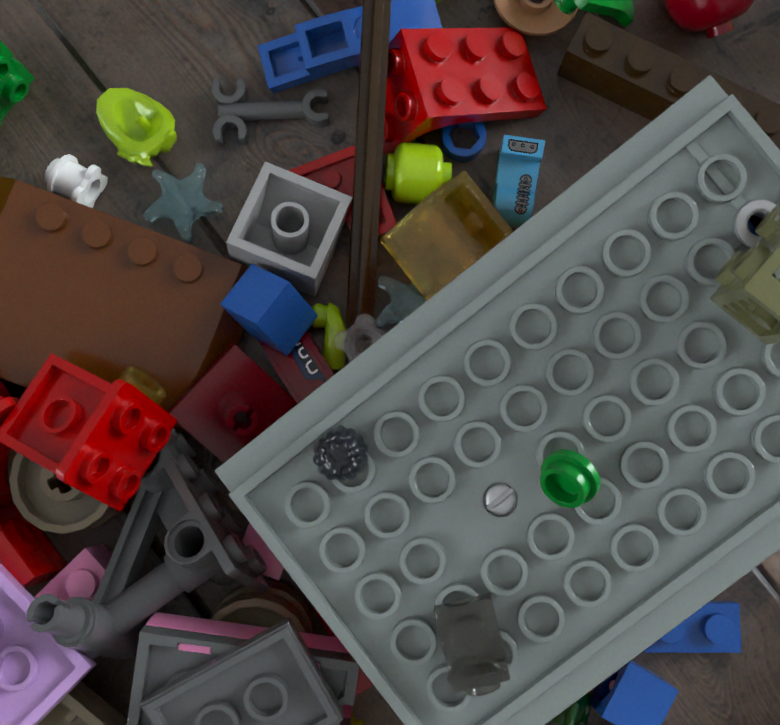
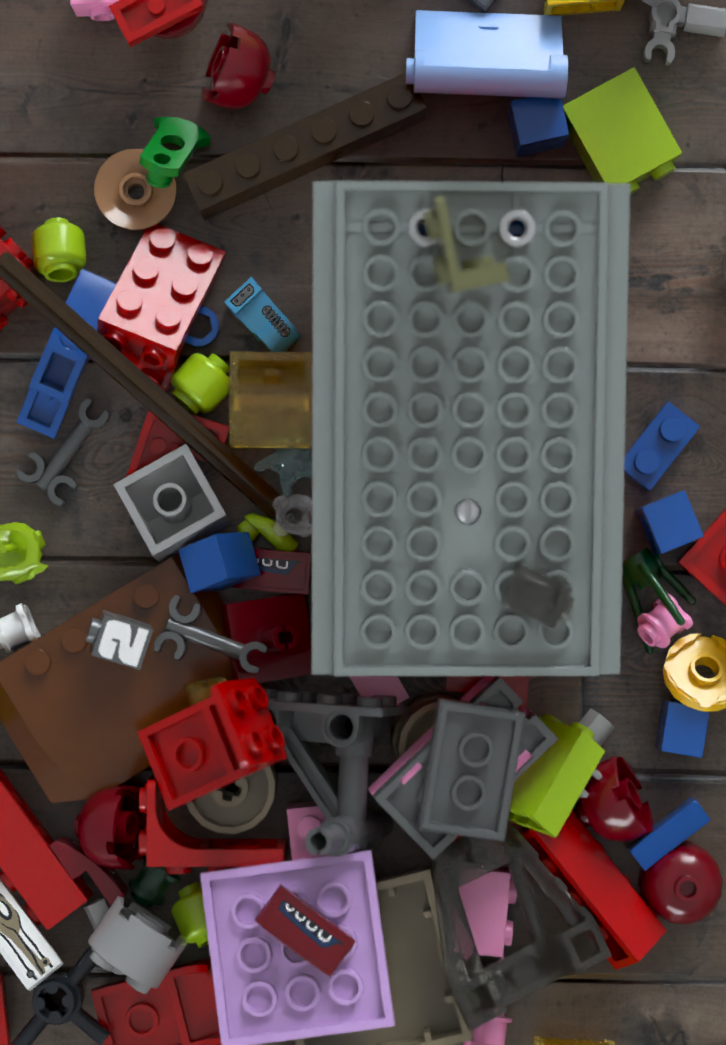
camera: 50 degrees left, 5 degrees up
(123, 269) = (118, 639): none -> brick
(179, 322) = (180, 629): none -> dark grey bar
(182, 200) = (88, 563): clear light blue animal -> none
(340, 453) = (364, 586): black piece -> none
(569, 478) = (486, 463): green plate -> none

